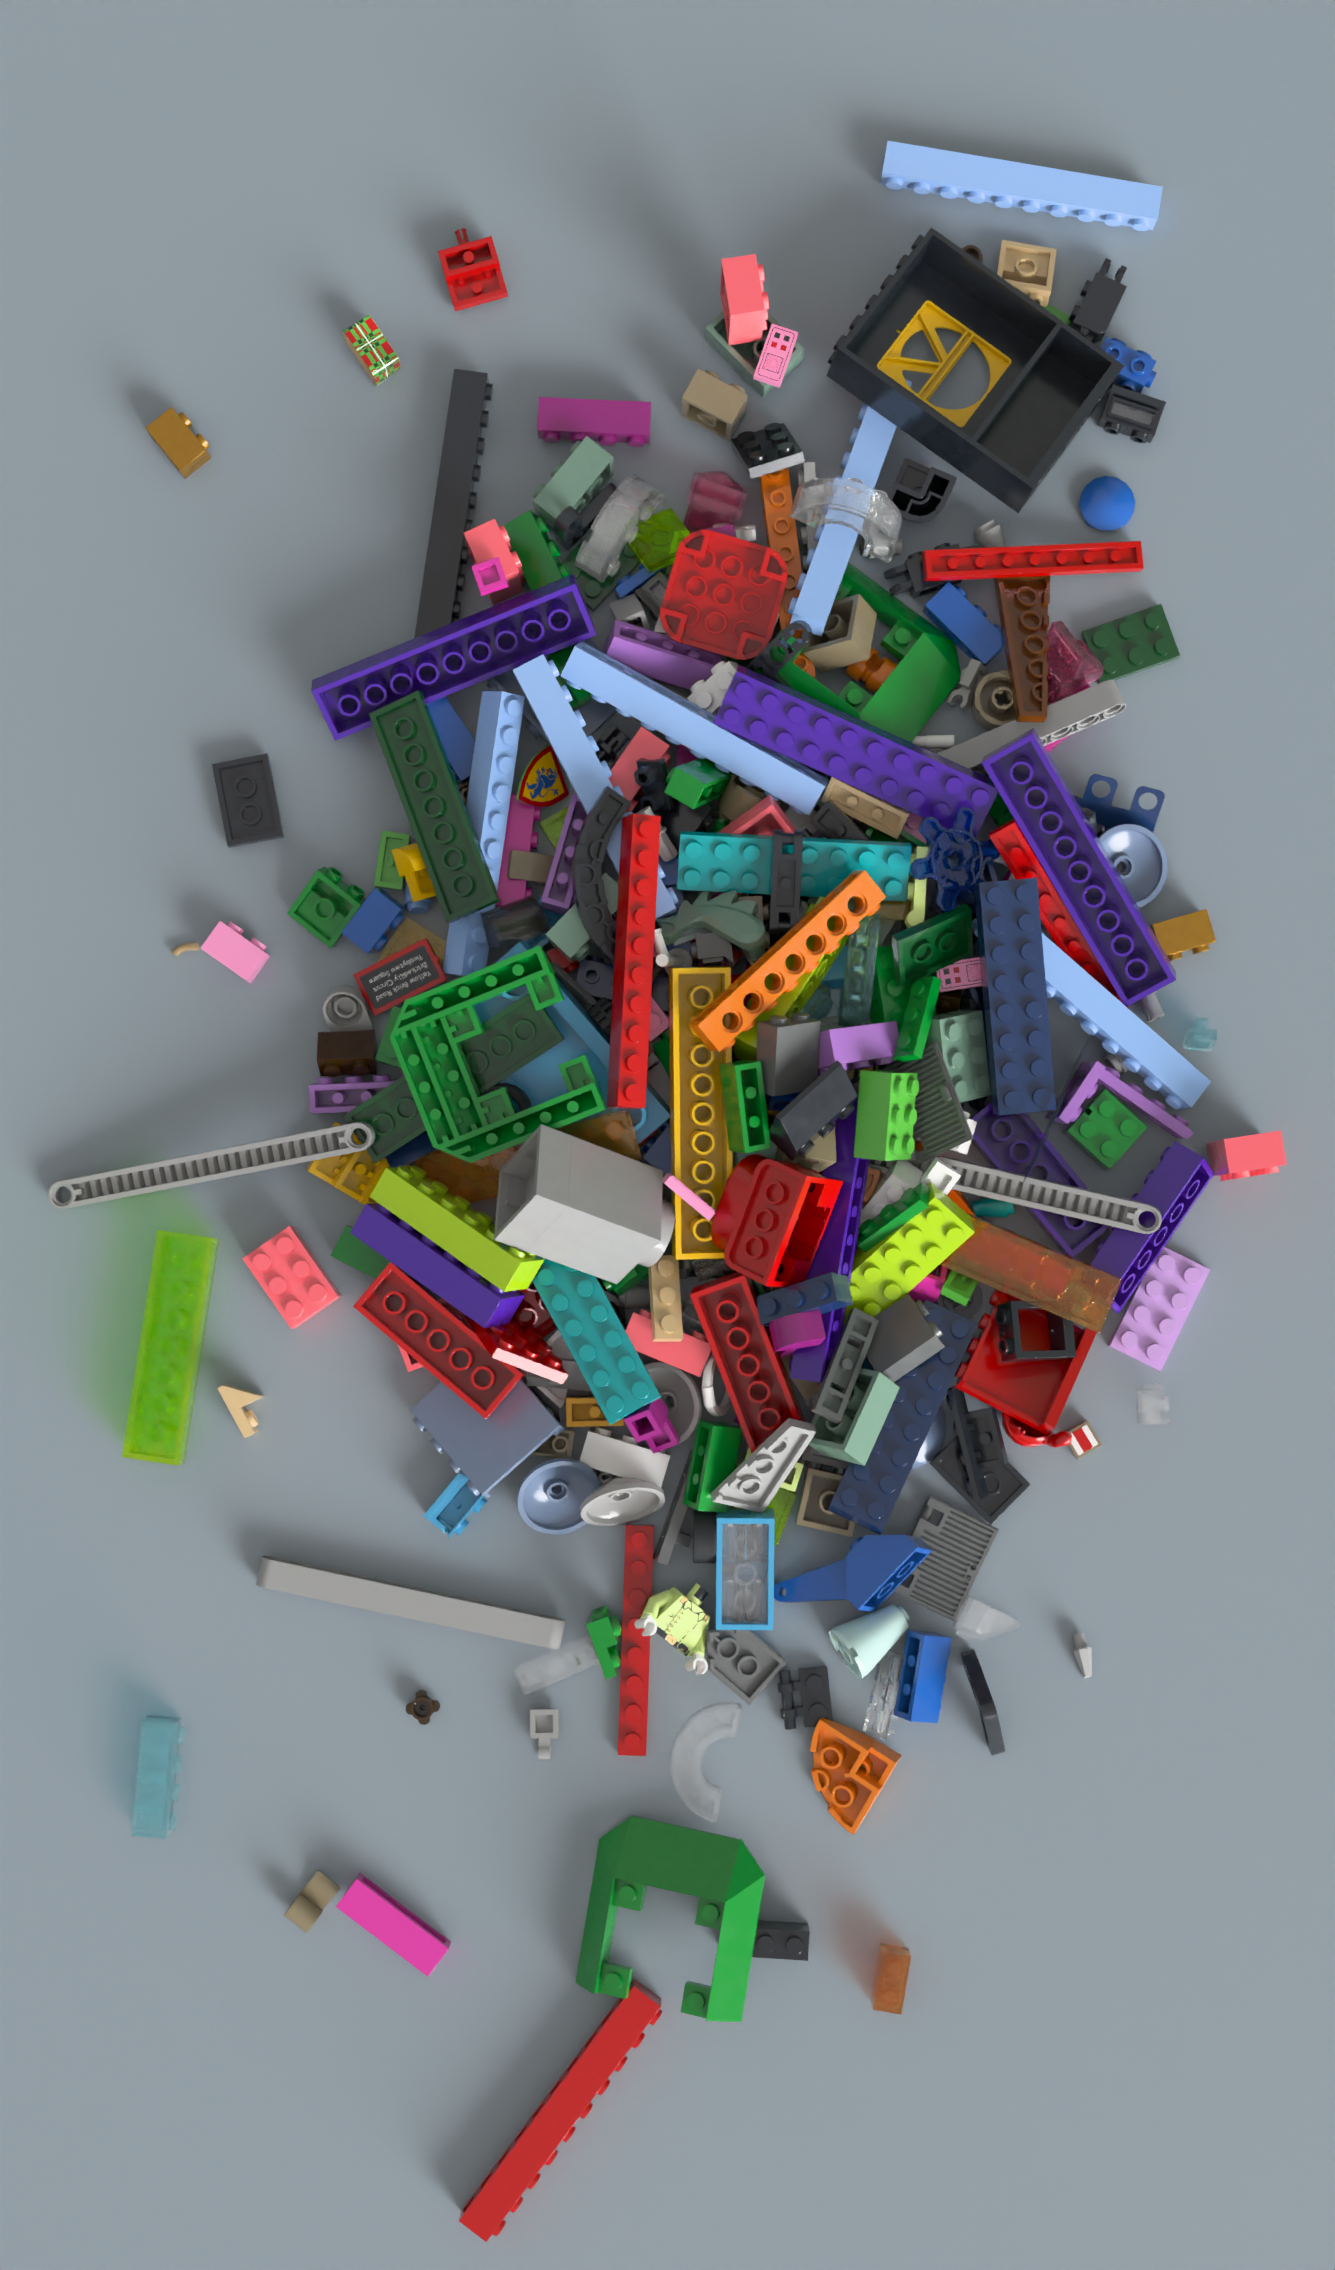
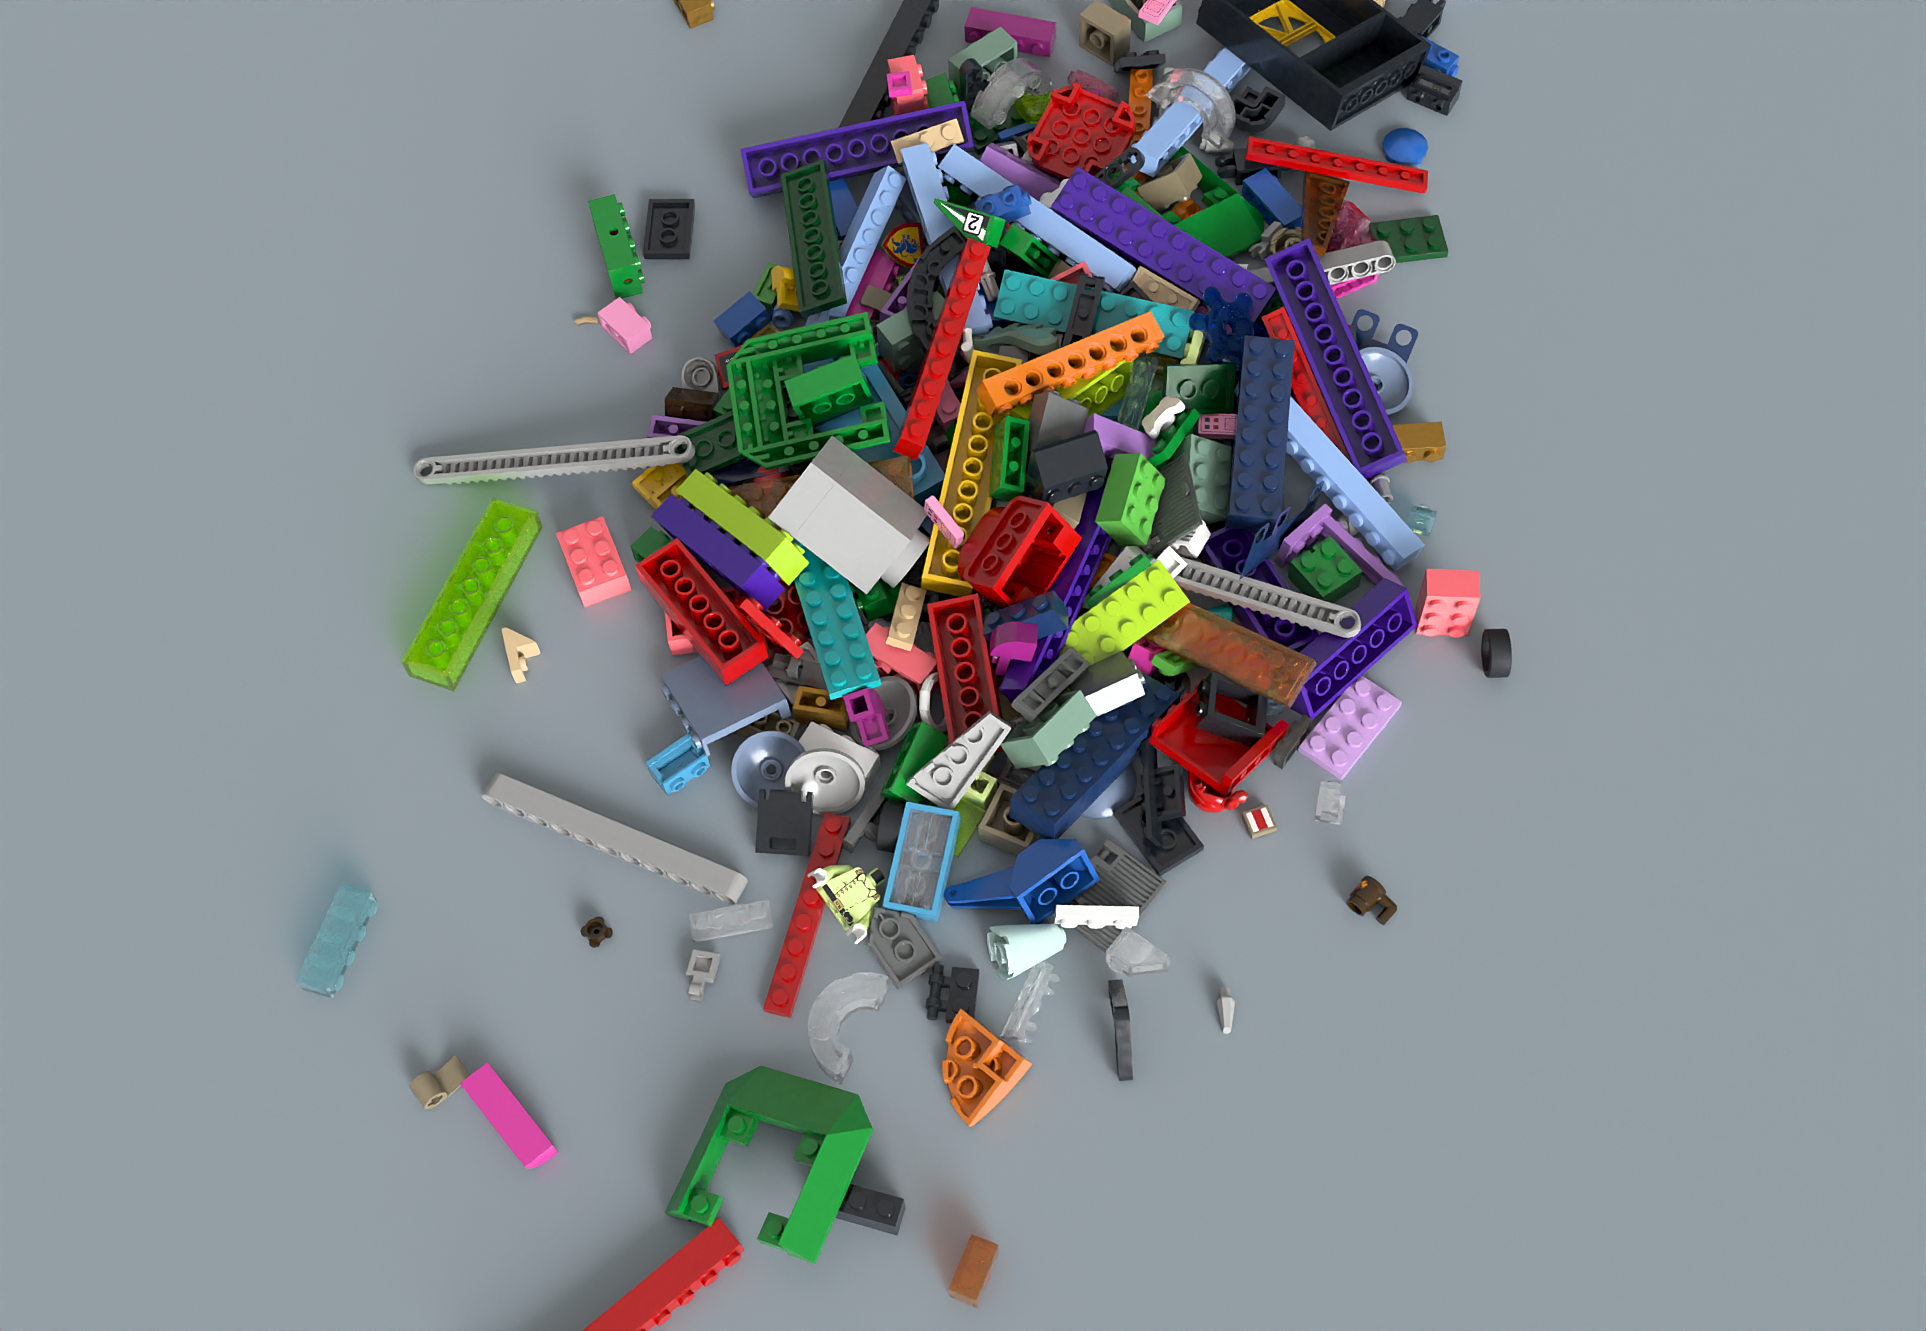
camera: 15 degrees right, 25 degrees down
(192, 846) = (617, 246): none -> green brick
(327, 905) = (706, 304): green plate -> none
(517, 1051) = (829, 390): none -> green brick
(540, 640) = (937, 137): none -> tan plate
(588, 1549) = (784, 817): none -> black container
(605, 1633) = (779, 895): green plate -> none
(629, 776) = (973, 223): none -> slope
(655, 733) = (1008, 204): none -> blue brick
(899, 995) = (1162, 416): none -> white piece
(922, 1676) = (1067, 991): blue brick -> none
(937, 1593) = (1096, 916): none -> white plate
(1102, 1344) = (1297, 733): none -> clear smoke plate
(1207, 1503) = (1367, 895): none -> dark brown piece
(1304, 1197) = (1496, 653): none -> black tyre

